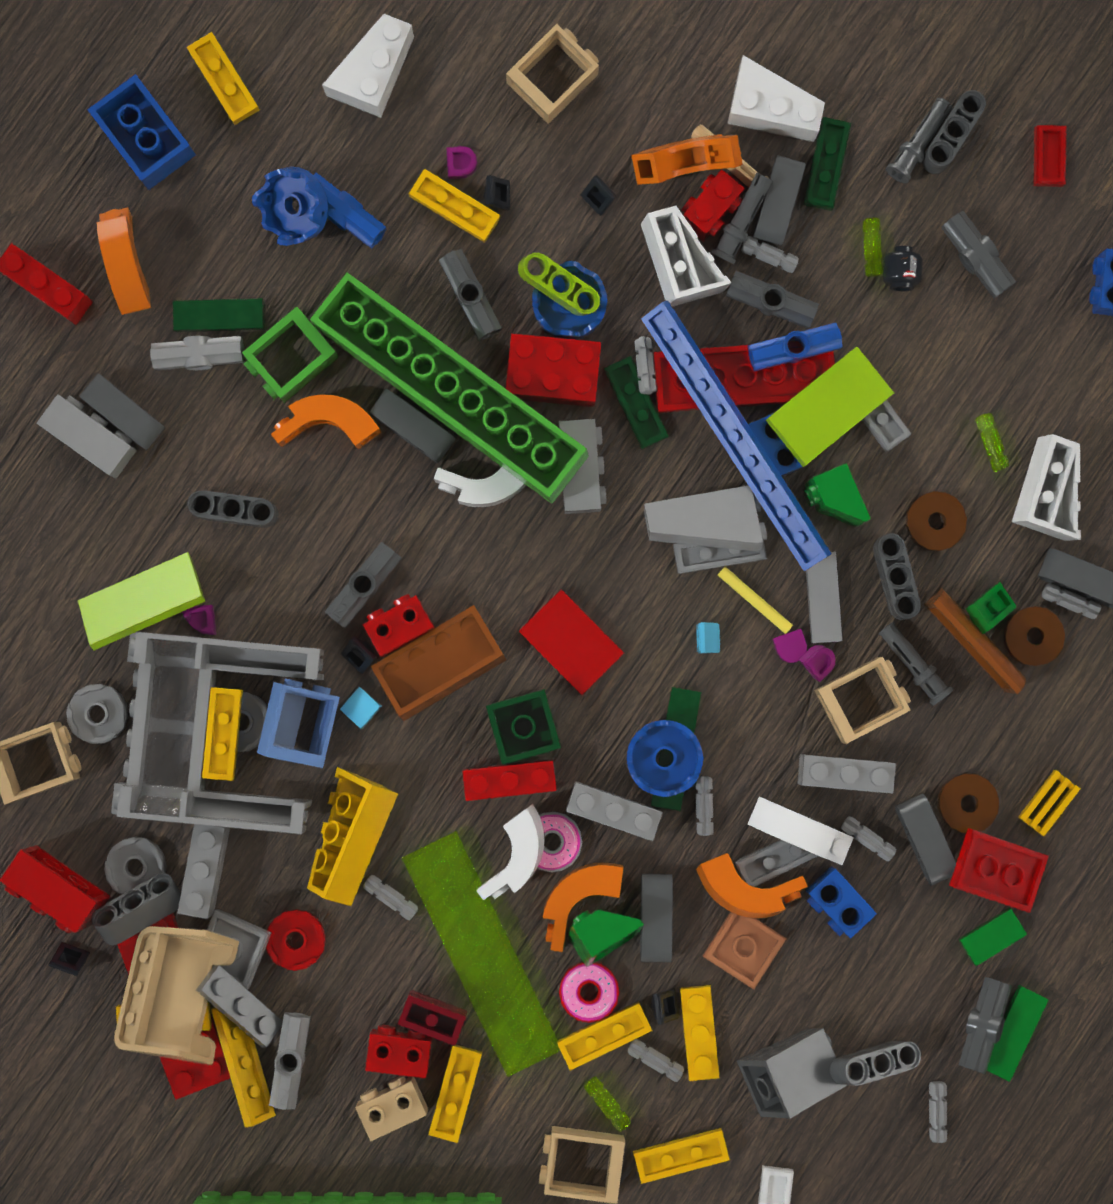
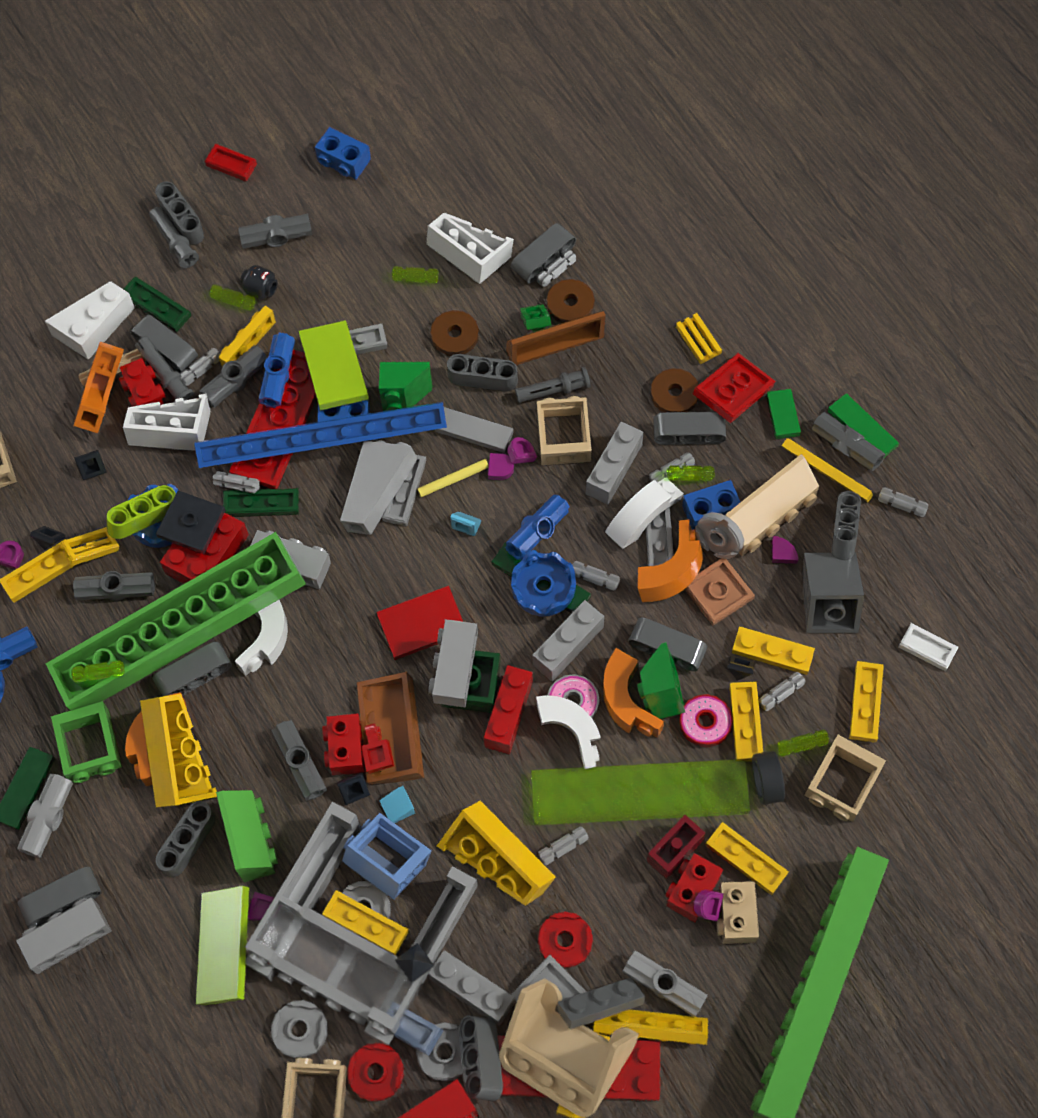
camera: 60 degrees left, 20 degrees down
(70, 812) = (378, 1089): none -> red tile
(138, 838) = (418, 1033): none -> sand blue tile
(189, 809) = (414, 963): none -> black slope
(261, 571) = (247, 834): none -> bright green slope
(308, 456) = (174, 753): none -> yellow wedge
(356, 334) = (97, 671): none -> clear neon green axle
(382, 1078) = (708, 904): none -> magenta tile
(400, 665) = (377, 752): none -> red plate
(484, 229) = (91, 549): none -> yellow tile
(524, 706) = (453, 663): none -> light grey brick
(546, 1086) = (768, 777): none -> black tyre
(567, 345) = (190, 522): none -> black plate
(731, 721) = (537, 527): none -> blue piece
(803, 928) = (732, 536): none -> light grey tile
(821, 999) = (783, 551): none -> magenta tile
(826, 290) = (249, 336): none -> yellow plate
(864, 970) = (775, 503): none -> tan slope
(870, 863) = (690, 473): none -> clear neon green axle
(939, 1015) = (828, 470): none -> yellow tile

